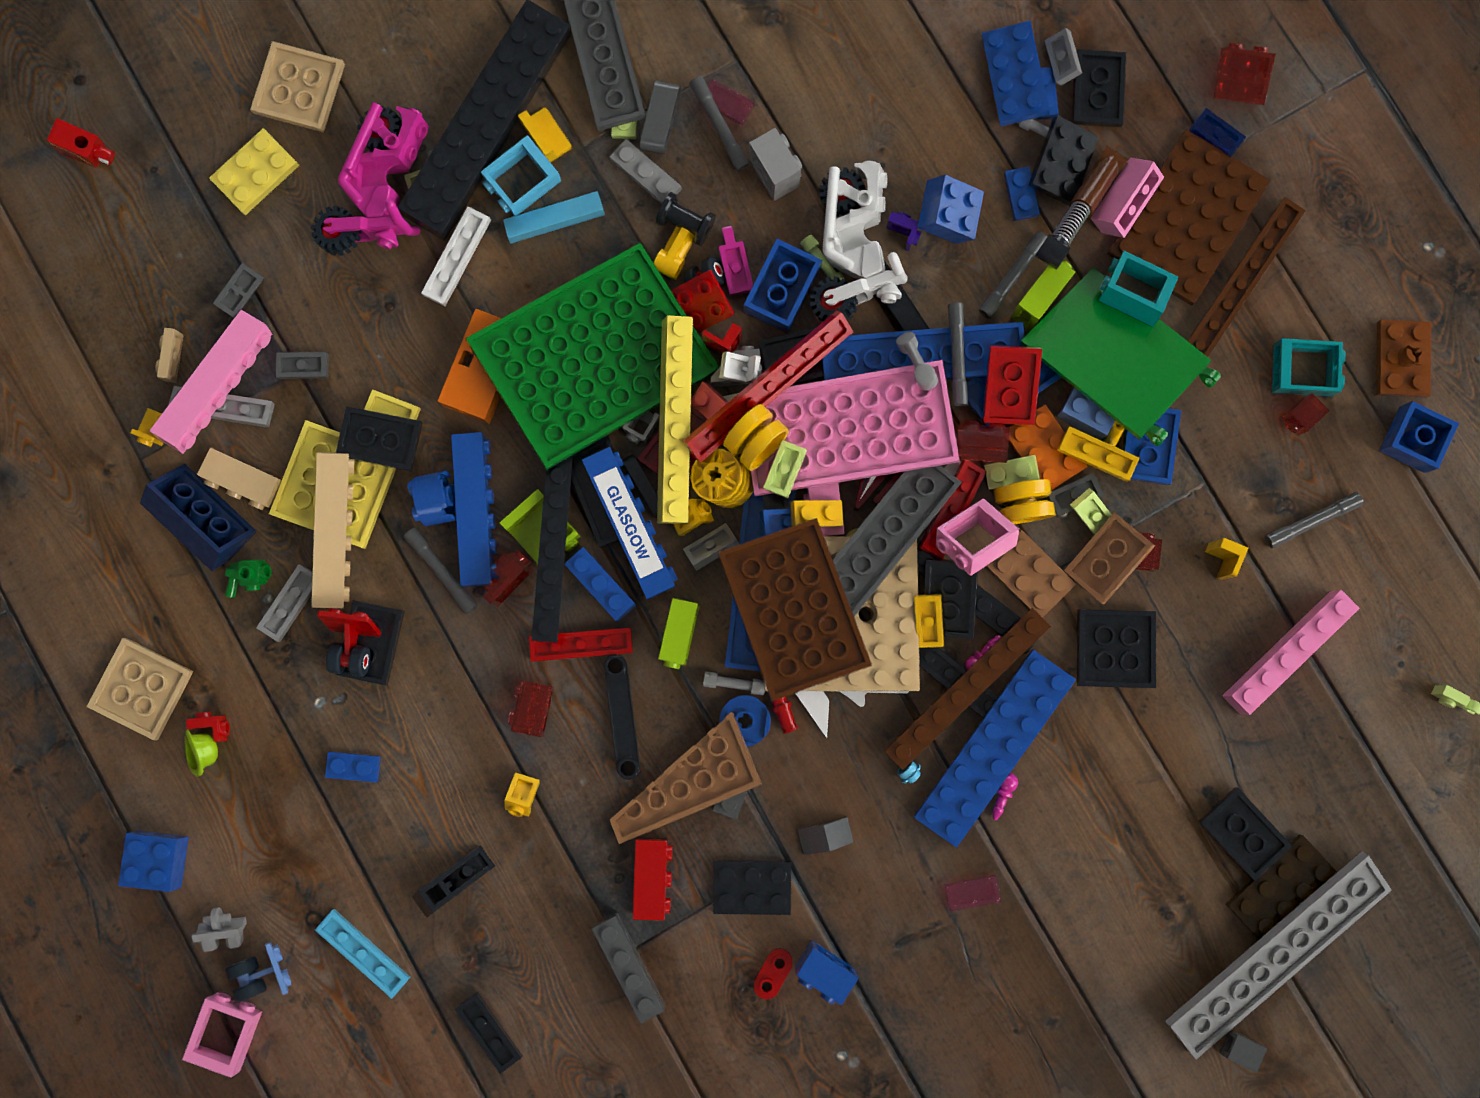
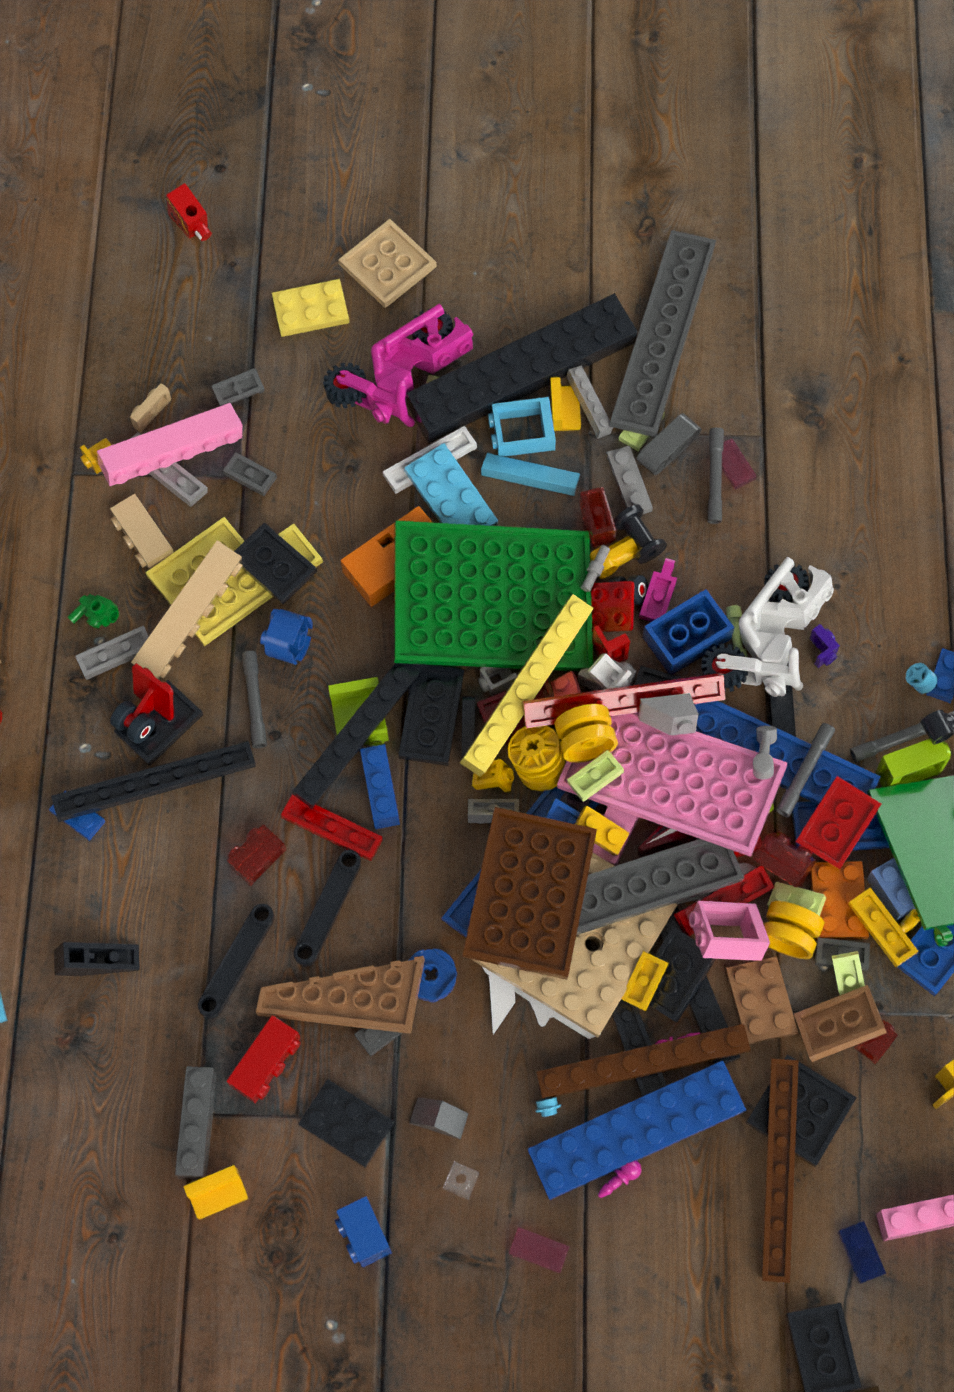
camera: 30 degrees right, 15 degrees down
(197, 516) = (87, 542): dark blue slope -> none
(400, 700) = (153, 781): none -> black plate
(474, 509) = (313, 666): blue brick -> none
(488, 1032) = (41, 1106): black plate -> none
(493, 277) = (448, 489): none -> medium azure plate
(512, 572) = (312, 734): clear red plate -> none
(521, 795) = (200, 921): yellow bracket -> none
(565, 117) = (589, 401): none -> light grey piece
(573, 809) = (236, 961): none -> black piece
(629, 524) = (435, 749): brick -> none
(639, 224) = (597, 516): none -> clear red brick
(667, 275) = (595, 568): none -> light grey bar
(678, 633) = (420, 863): lime window -> none
(681, 1011) = (216, 1192): none -> yellow panel
(712, 680) = (424, 924): light grey bar -> none
(771, 973) = (317, 1212): red plate -> none
(775, 163) = (743, 531): light grey brick -> none
(784, 715) = (469, 982): red pin -> none
(816, 375) = (669, 713): none -> light grey slope
(870, 870) = (463, 1190): none -> clear plate
(950, 209) = (872, 650): blue brick -> none
(999, 213) = (921, 678): none -> medium azure wheel
(1130, 710) = (780, 1171): none -> reddish brown plate
(1229, 735) = (861, 1252): none -> clear blue plate

